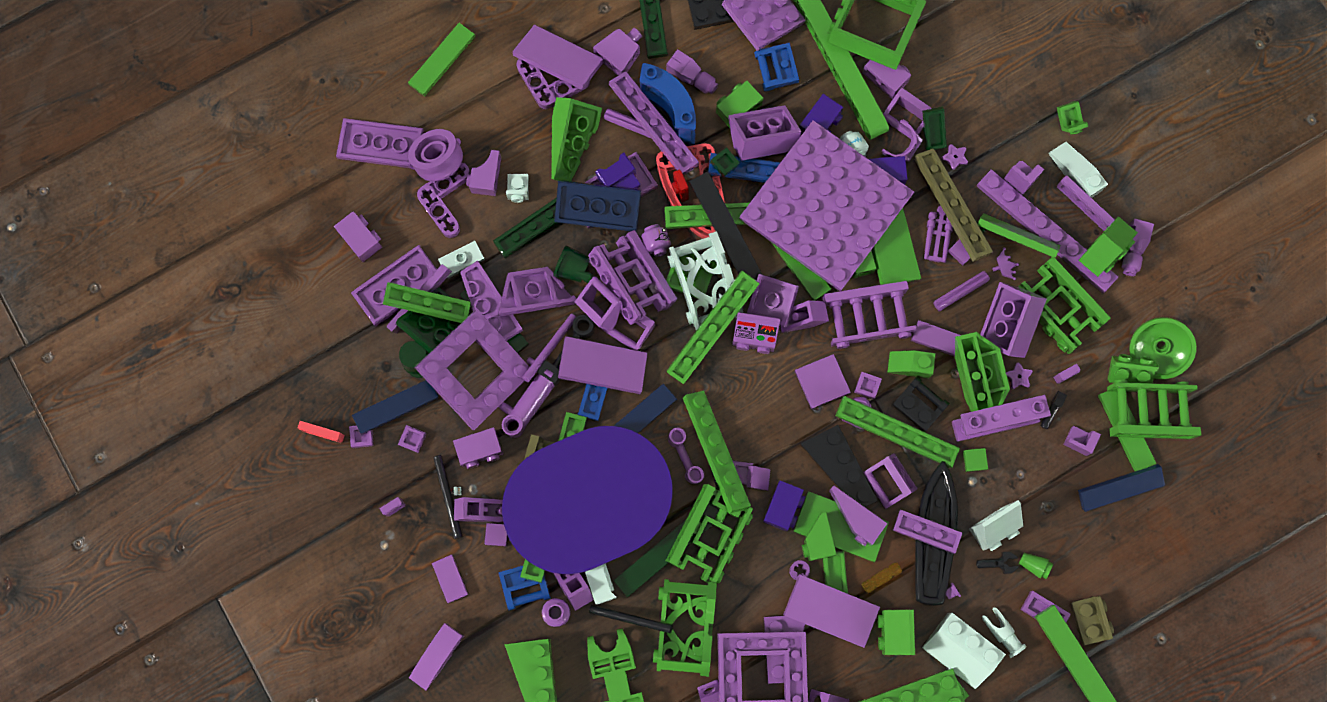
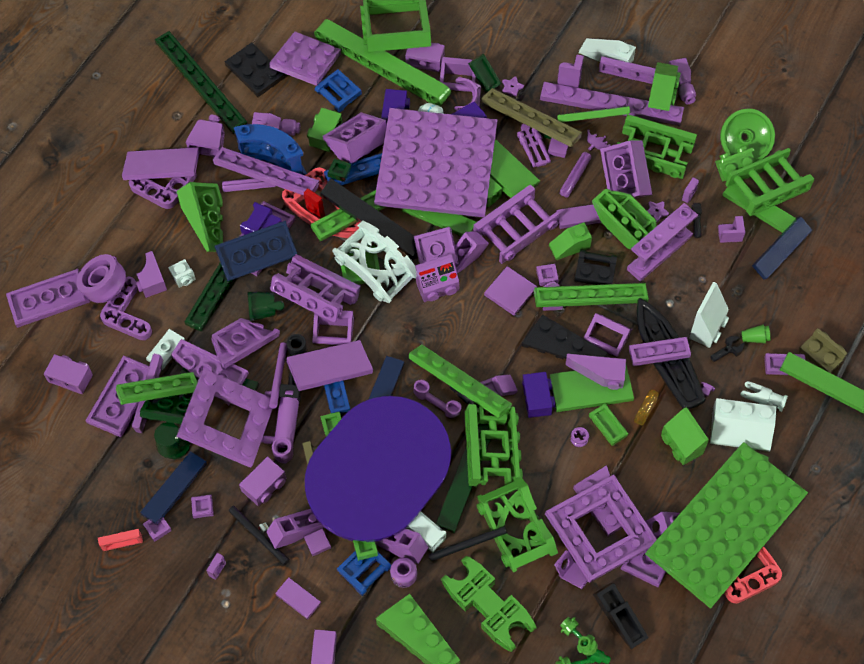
camera: 30 degrees left, 15 degrees down
(441, 59) = (65, 212): bright green tile -> none
(586, 303) = (286, 321): medium lavender tile -> none
(656, 240) = (318, 253): medium lavender head -> none
(712, 327) = (401, 290): bright green plate -> none
(819, 540) = (582, 402): bright green slope -> none
(831, 611) = (623, 451): medium lavender tile -> none
(975, 460) = (662, 285): bright green tile -> none
(1071, 118) = (579, 20): bright green bracket -> none

